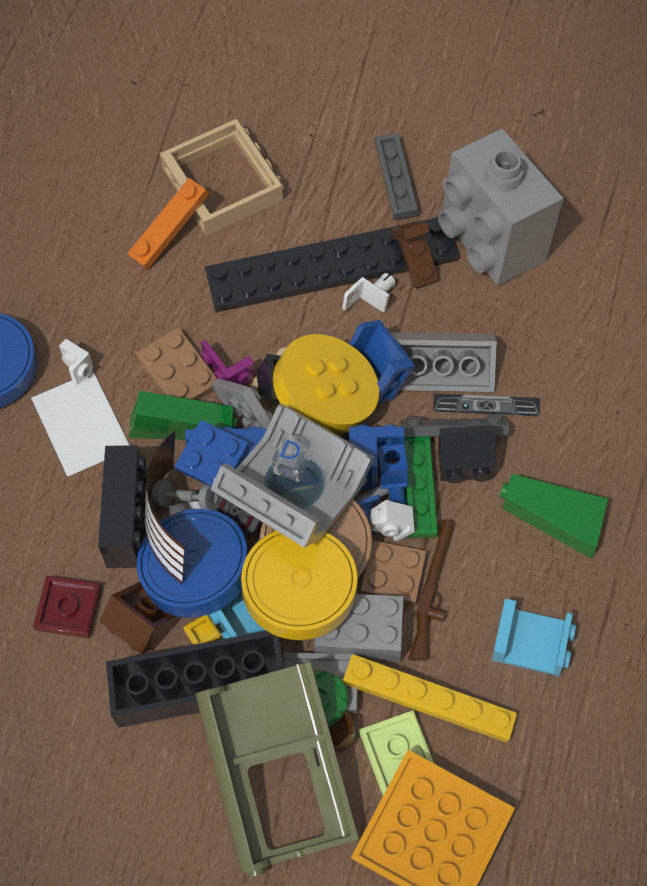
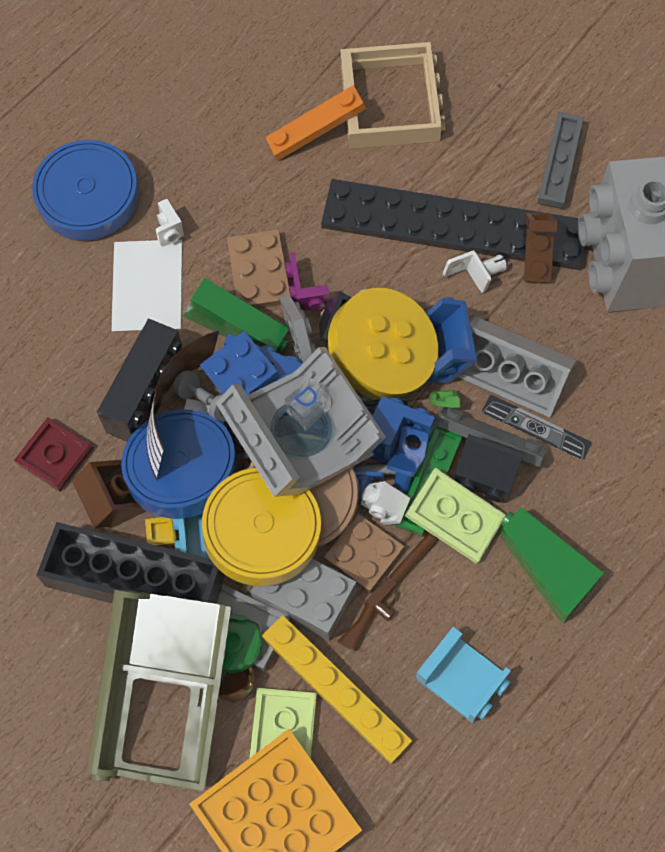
camera: 25 degrees right, 5 degrees up
(398, 412) = (445, 398): none -> bright green tile
(457, 505) = (455, 515): none -> yellowish green tile

